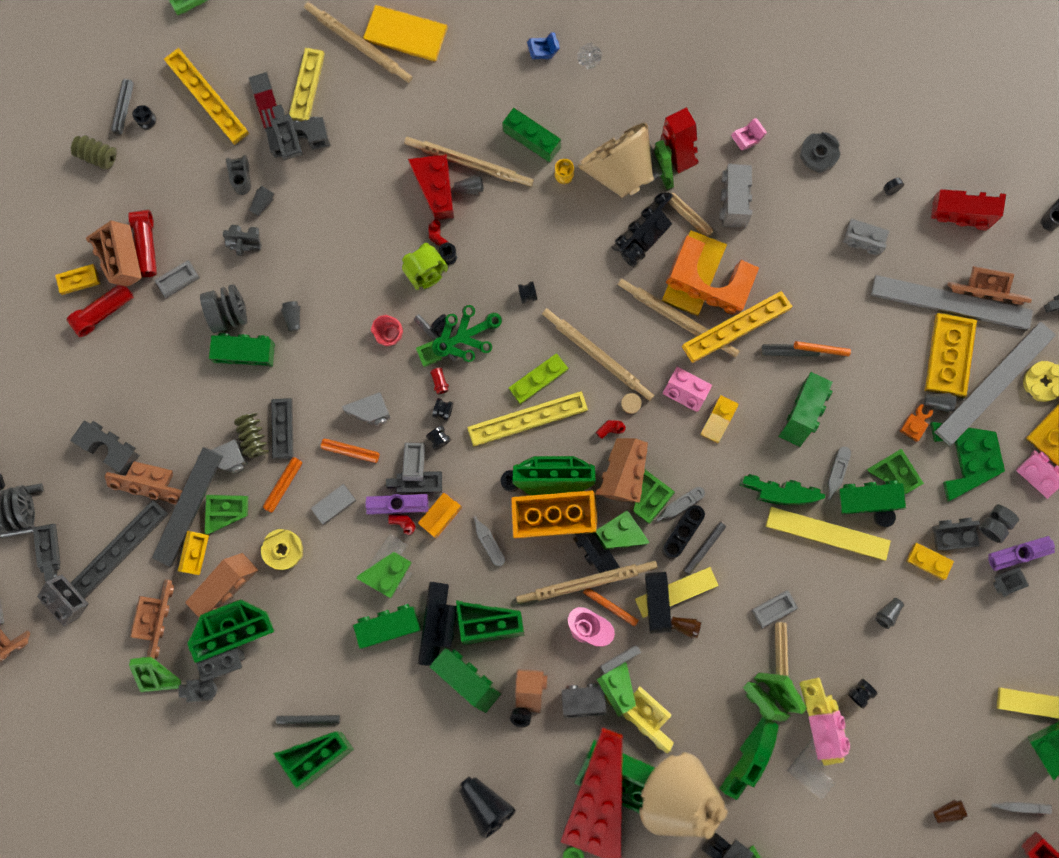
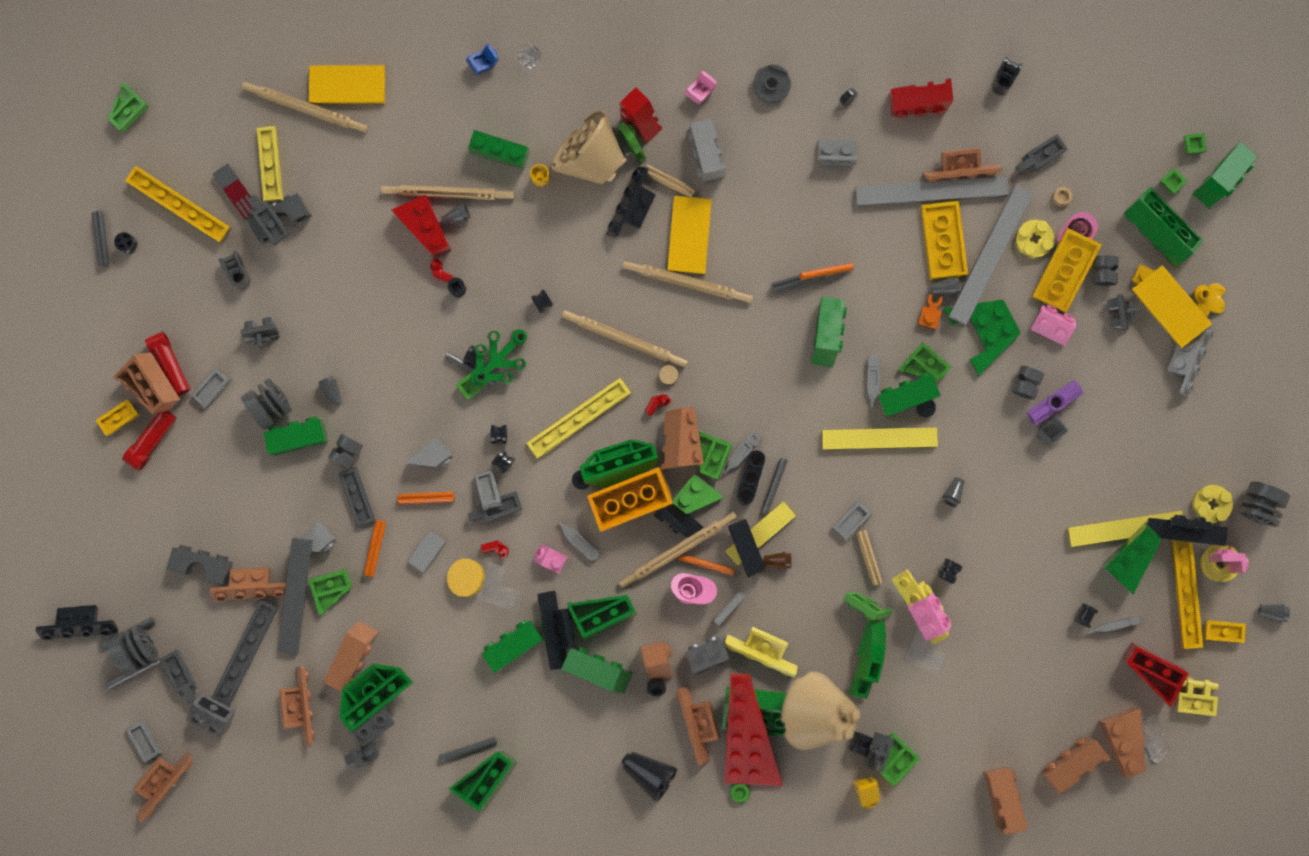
camera: 25 degrees left, 5 degrees up
(93, 151) = (90, 293): olive piece -> none
(152, 675) = (316, 755): bright green wing -> none
(193, 553) = (314, 635): yellow plate -> none
(250, 436) = (330, 513): olive piece -> none
(261, 200) = (265, 288): dark grey cone -> none
(271, 544) = (383, 605): light yellow plate -> none
(285, 379) = (345, 451): none -> dark grey wheel
(363, 542) = (465, 577): none -> yellow tile
(386, 574) = (496, 599): bright green wing -> none
(387, 330) = (424, 377): coral hair -> none
(410, 504) = (473, 537): medium lavender piece -> none
(424, 266) = (439, 307): lime brick -> none
(439, 381) = (487, 409): red pin -> none
(440, 515) = (527, 531): light orange panel -> none
(454, 550) = (550, 558): none -> bright pink bracket
(538, 378) = (577, 378): lime plate -> none
(554, 770) = (700, 723): none -> nougat bracket
(618, 689) = (734, 635): bright green wing -> none
(633, 254) = (628, 235): black wheel -> none
(685, 277) = (682, 243): orange arch -> none
(687, 389) = (715, 346): bright pink bracket -> none
(719, 419) = (752, 365): yellow slope -> none
(736, 327) = (743, 275): yellow plate -> none
(783, 691) = (879, 591): bright green wing -> none
(789, 494) = (835, 414): green slope -> none
(930, 561) = (976, 435): yellow plate -> none
(950, 812) = (1054, 649): reddish brown cone -> none
(956, 535) = (993, 404): dark grey bracket -> none
(994, 787) = (1086, 615): none -> black bush

